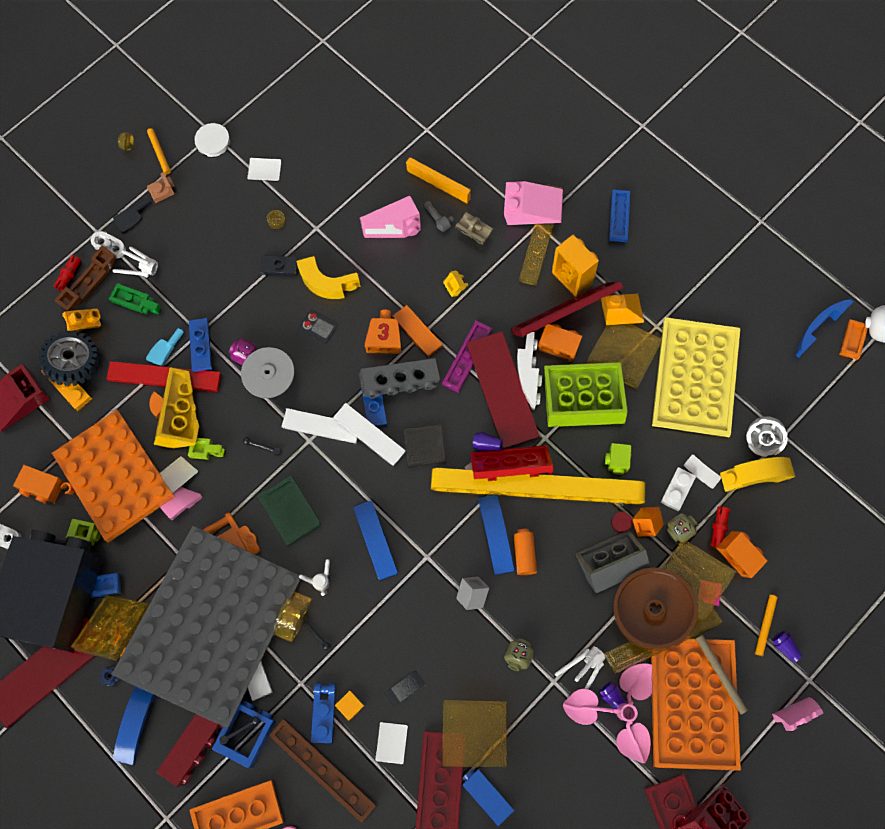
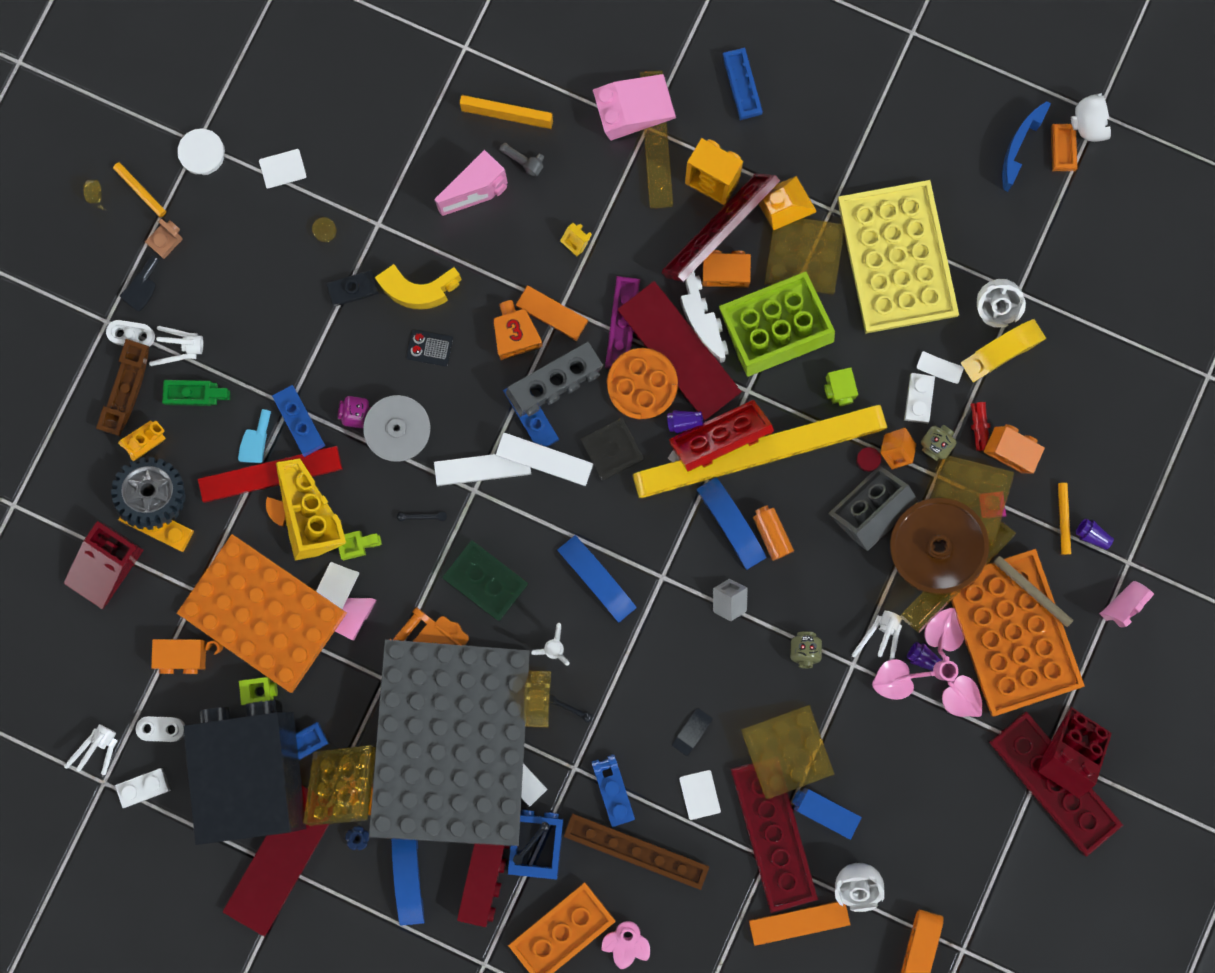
camera: 20 degrees left, 10 degrees up
(67, 273) = (95, 387): red pin -> none
(349, 705) = (639, 772): light orange tile -> none
(465, 404) = (642, 383): none -> orange tile
(474, 228) = (573, 160): dark tan hips -> none

